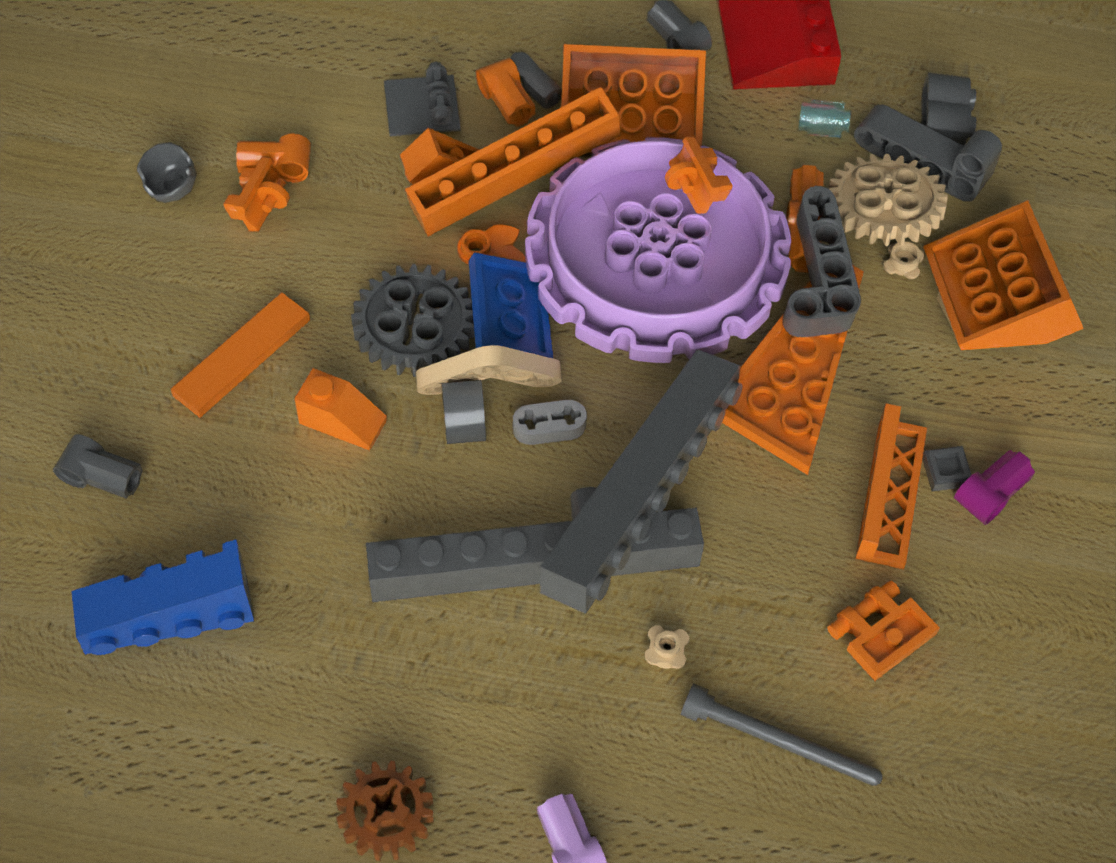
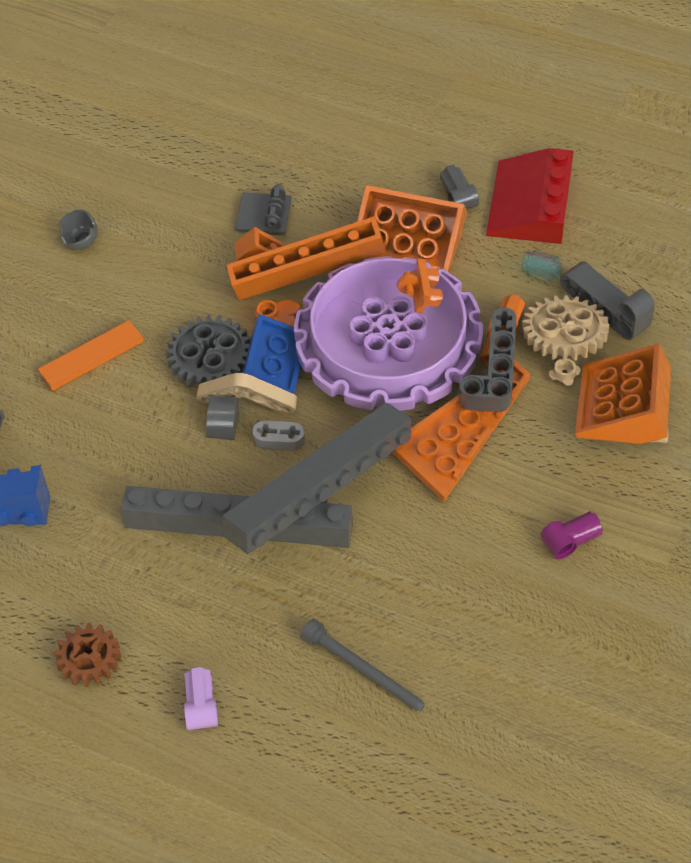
camera: 20 degrees right, 5 degrees down
(260, 194) = (136, 252): orange hips -> none
(288, 155) = (159, 233): orange piece -> none
(338, 410) = (140, 401): orange slope -> none
(503, 84) = (322, 208): orange piece -> none
(536, 81) = (344, 205): dark grey bar -> none
(664, 658) = (306, 601): tan plate -> none
(880, 482) = (490, 514): orange fence -> none
(890, 639) = (460, 618): orange plate -> none
(946, 468) = (542, 514): dark grey tile -> none
(948, 106) = (634, 270): dark grey brick -> none

